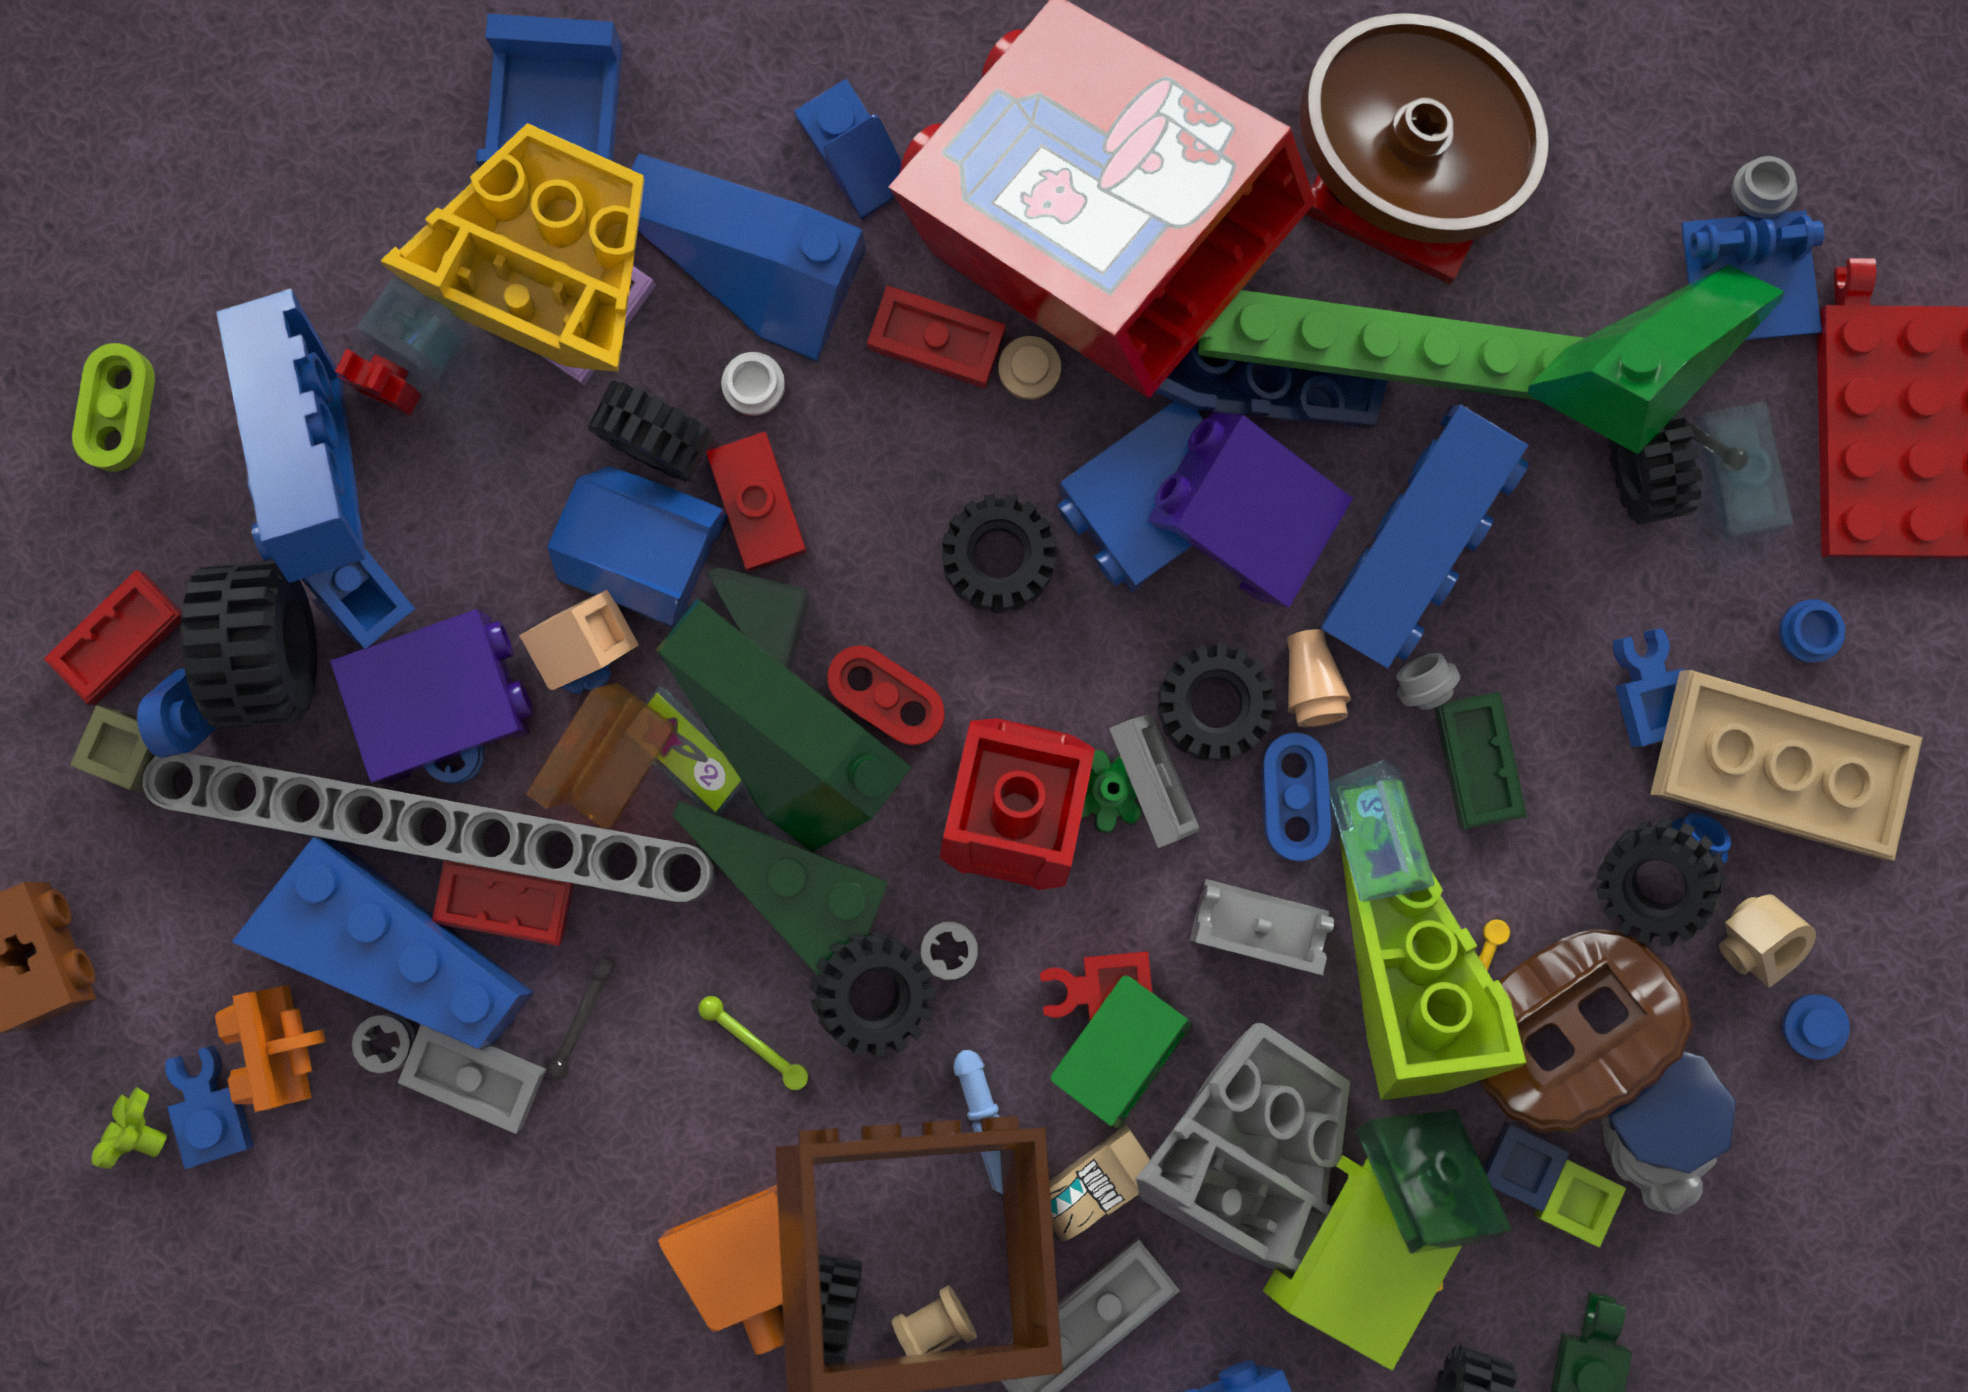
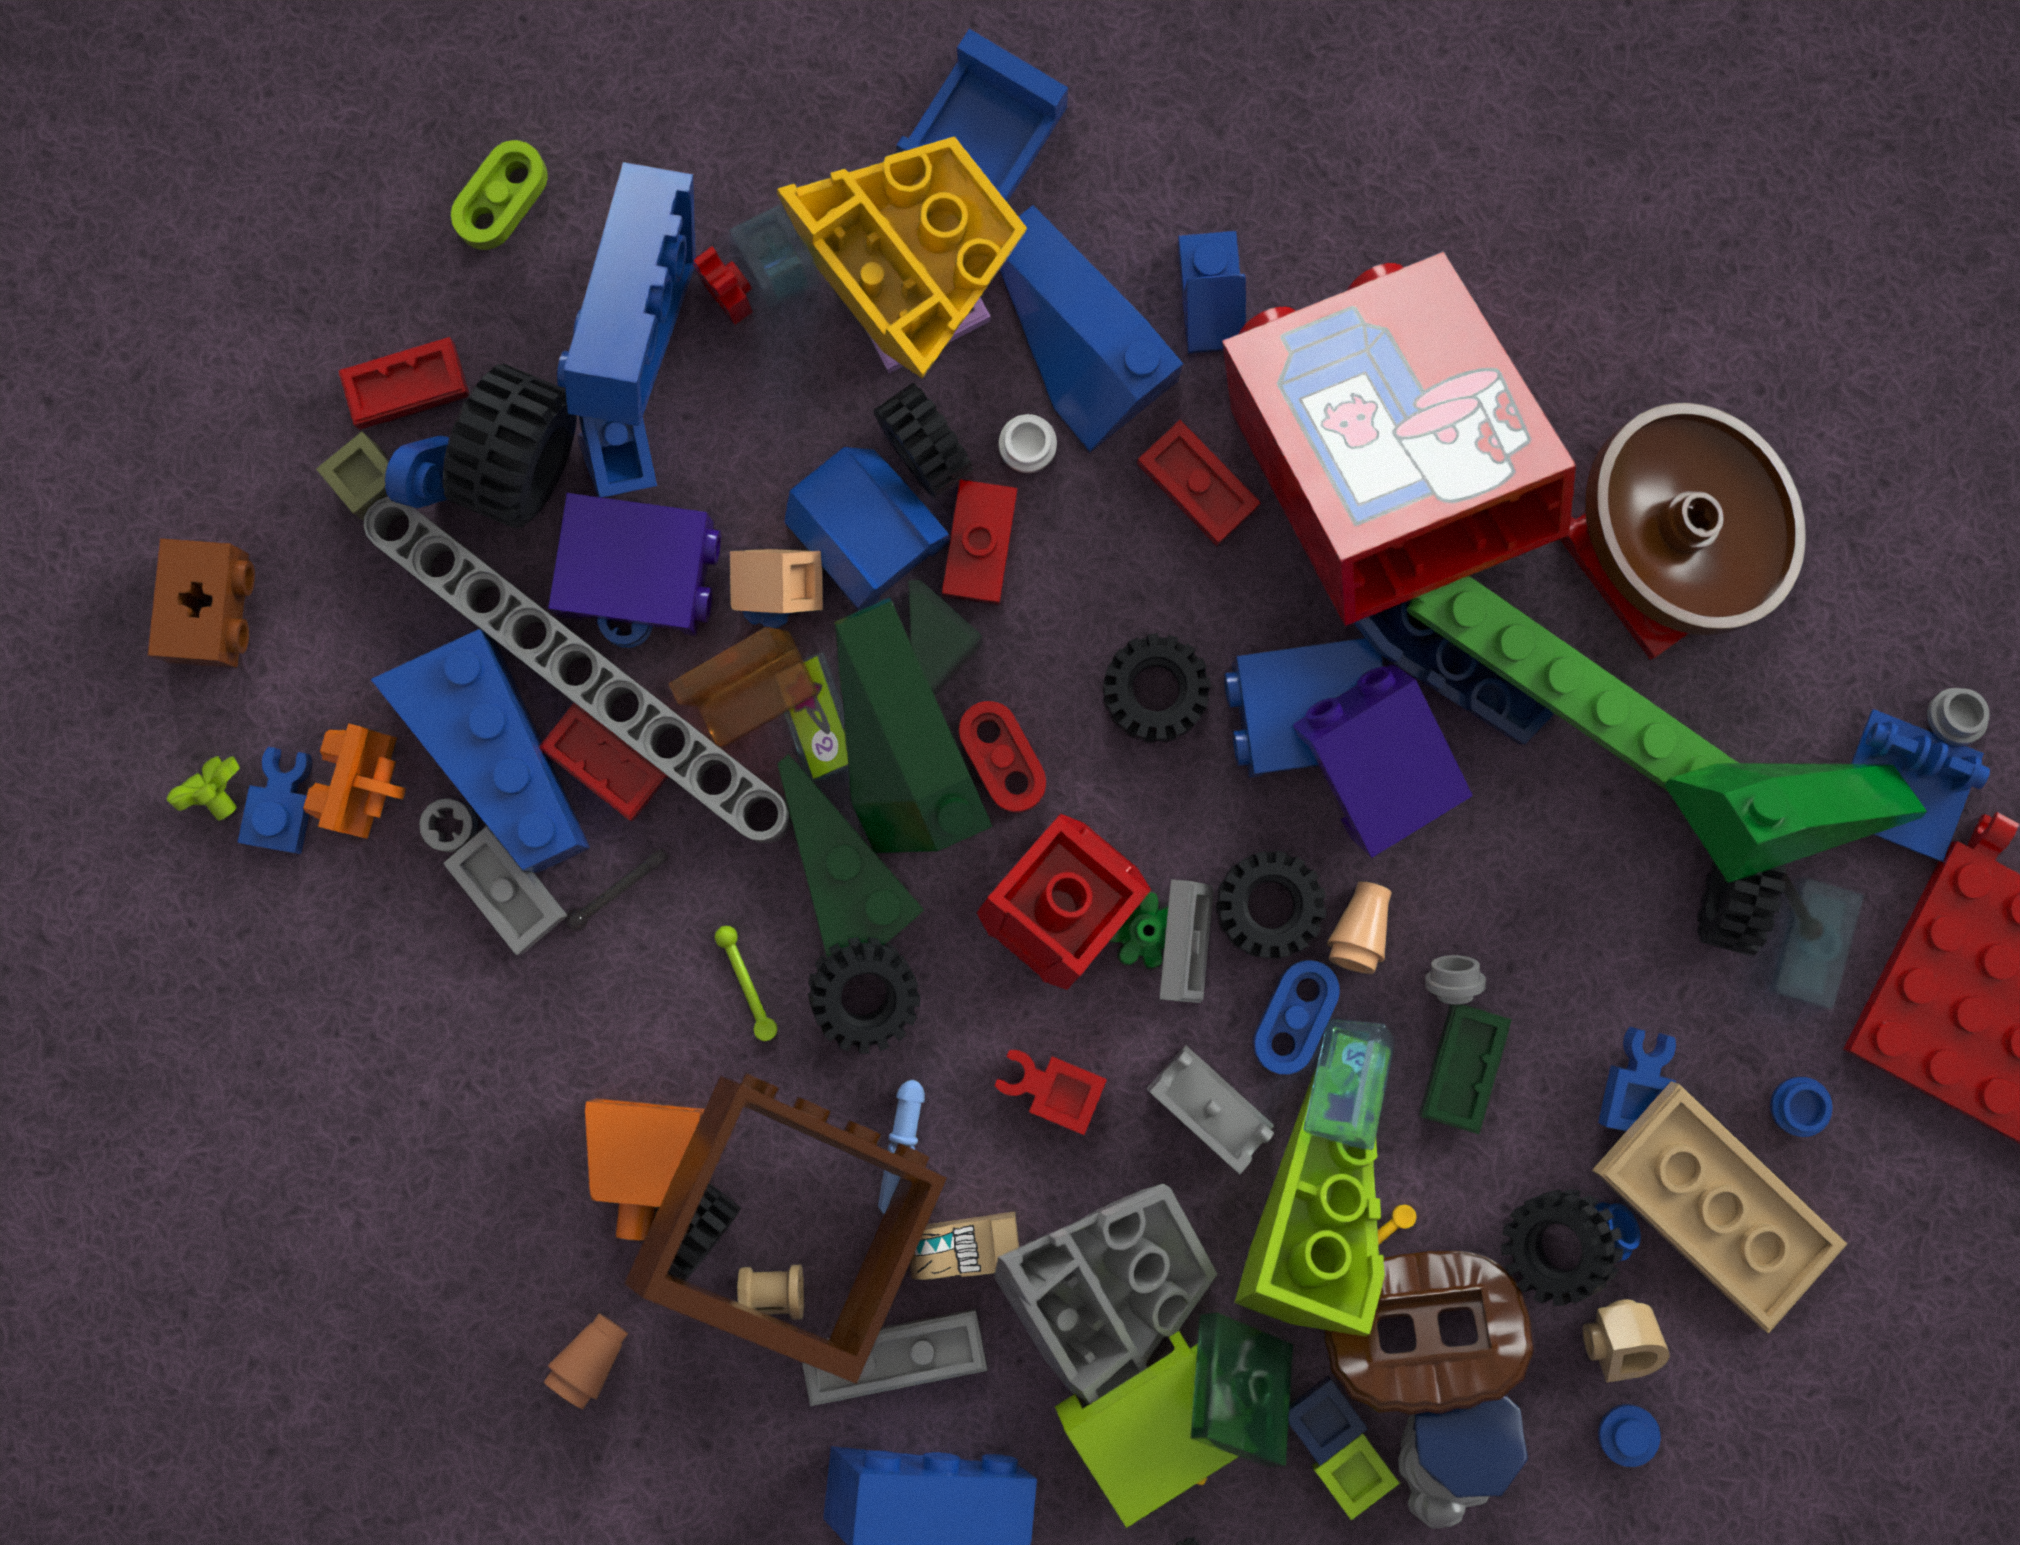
camera: 30 degrees right, 0 degrees up
(939, 967) = (929, 1001): light grey bush -> none
(1029, 367) = (1262, 548): tan plate -> none
(1121, 1051) = (1041, 1149): green panel -> none
(1425, 535) = (1515, 858): blue wedge -> none

